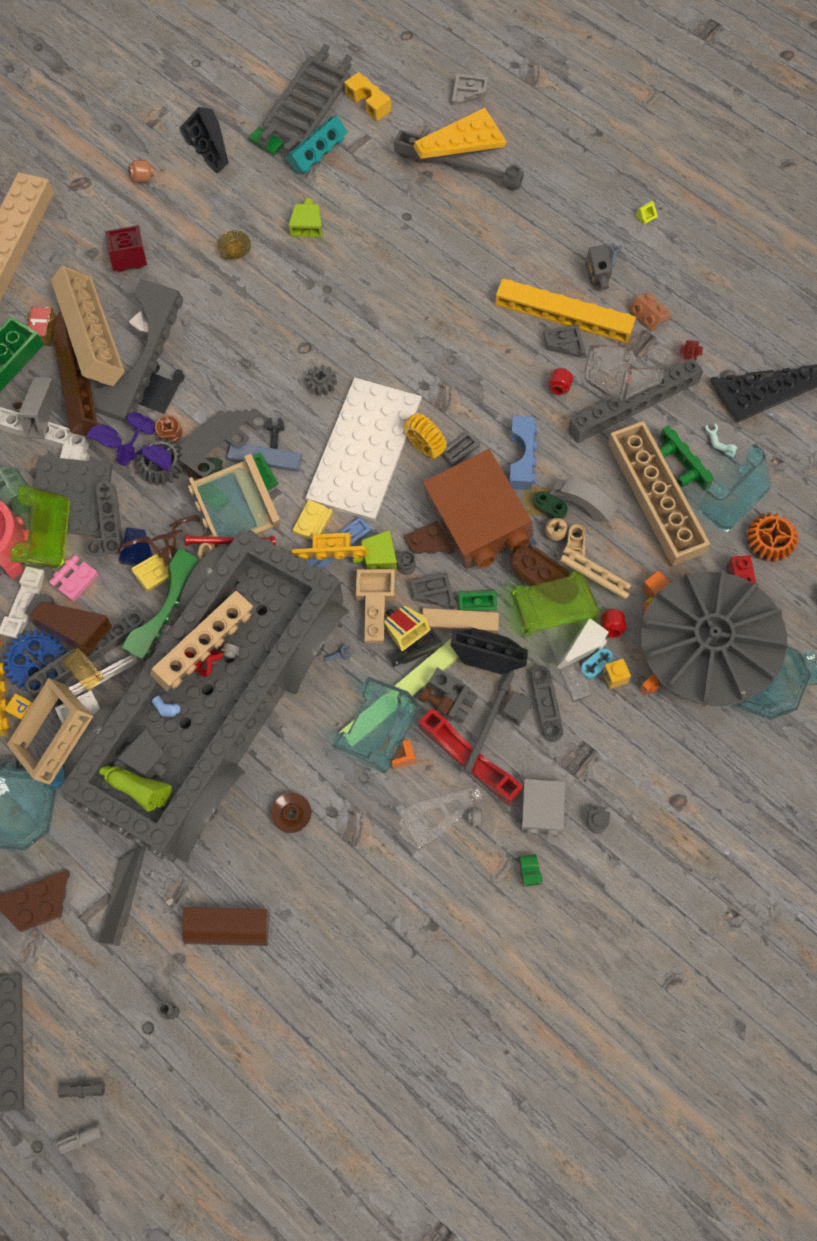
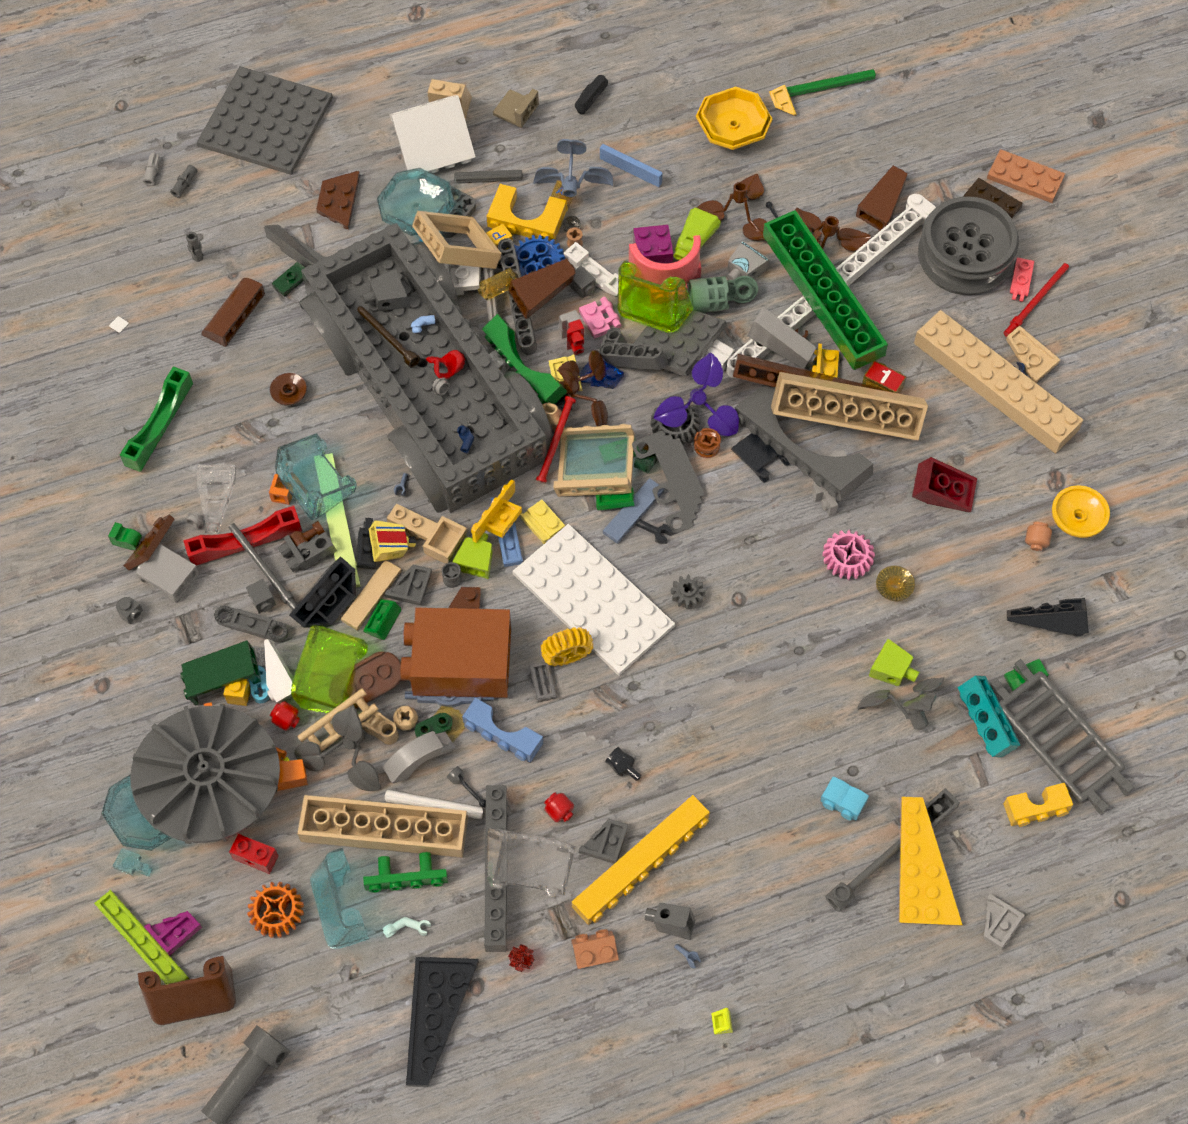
camera: 115 degrees right, 5 degrees down
(50, 371) = (826, 361): none -> yellow bracket
(105, 583) = (572, 328): none -> red hips
(106, 149) = (1080, 502): none -> yellow dish
(144, 791) = (357, 276): lime piece -> none
(158, 891) = (289, 279): none -> dark green plate
(212, 694) = (410, 358): none -> dark brown piece
(214, 284) = (837, 547): none -> bright pink gear
(234, 604) = (477, 403): tan brick -> none
(274, 598) = (467, 438): none -> dark blue arm
(296, 1044) = (118, 324): none -> white sticker
(310, 187) = (916, 706): none -> dark grey plant
(387, 920) = (142, 445): none -> green arch
(435, 207) = (844, 798): none -> medium azure brick
(496, 359) = (622, 763): none -> black piece
(524, 840) = (150, 542): none -> reddish brown wing
(580, 467) = (457, 776): none -> hinge
(604, 554) = (346, 724): none -> dark grey plant
(612, 473) = (415, 800): none -> white axle
(613, 693) = (219, 670): none -> dark green panel

